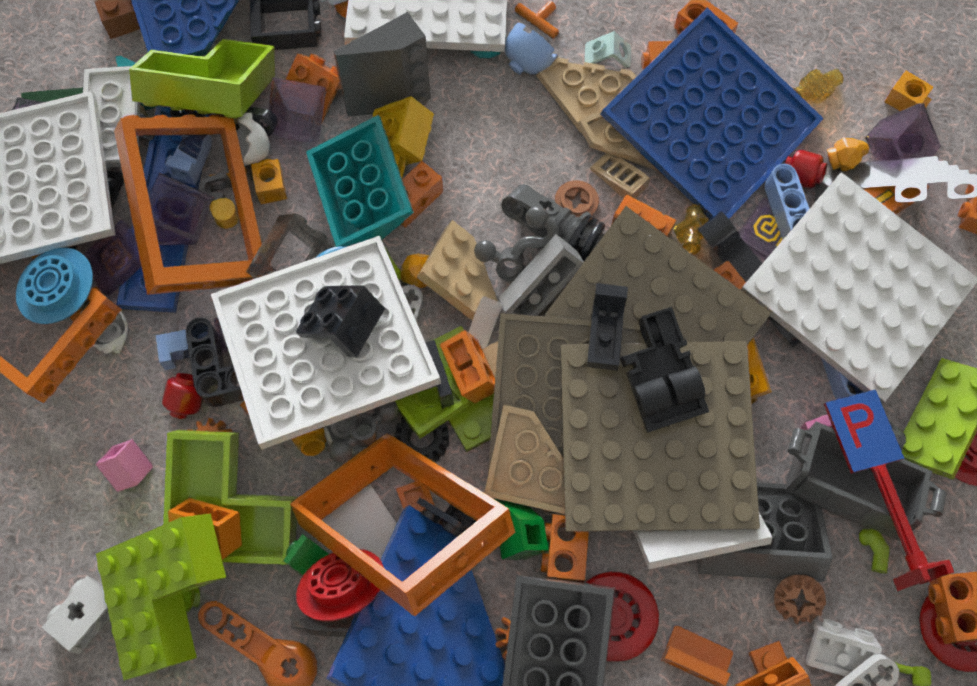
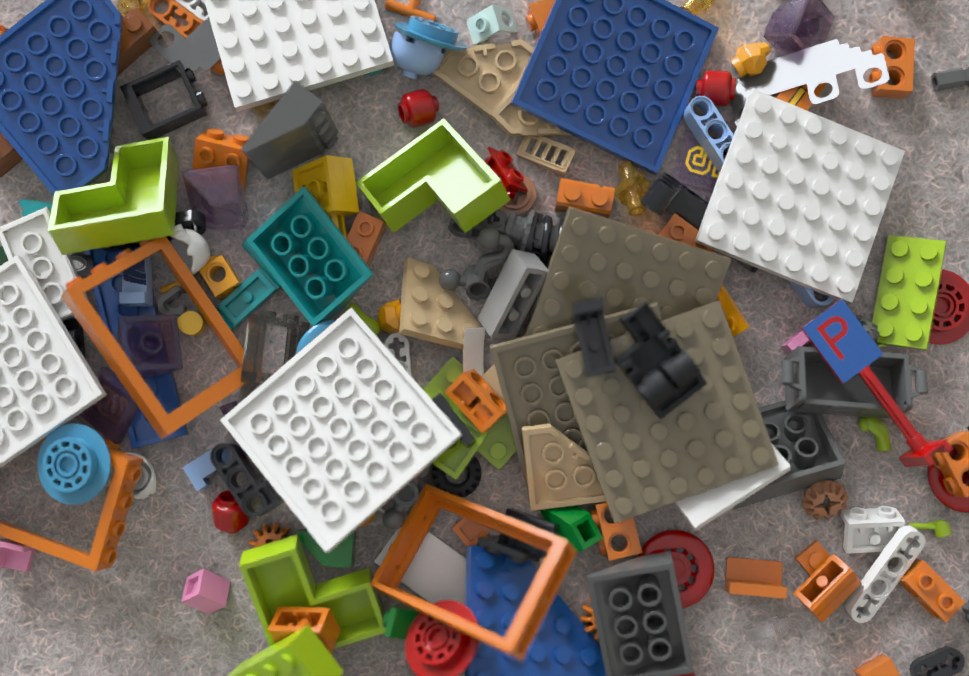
camera: 15 degrees left, 15 degrees up
(269, 466) = (341, 556): none -> green slope
(301, 201) = (249, 294): none -> teal plate
(343, 315) = (350, 408): black bracket -> none
(507, 148) = (432, 170): none -> lime piece
(512, 97) = (418, 108): none -> red head
(551, 33) = (431, 33): none -> dark azure wheel
(572, 177) = (501, 164): none -> red hinge

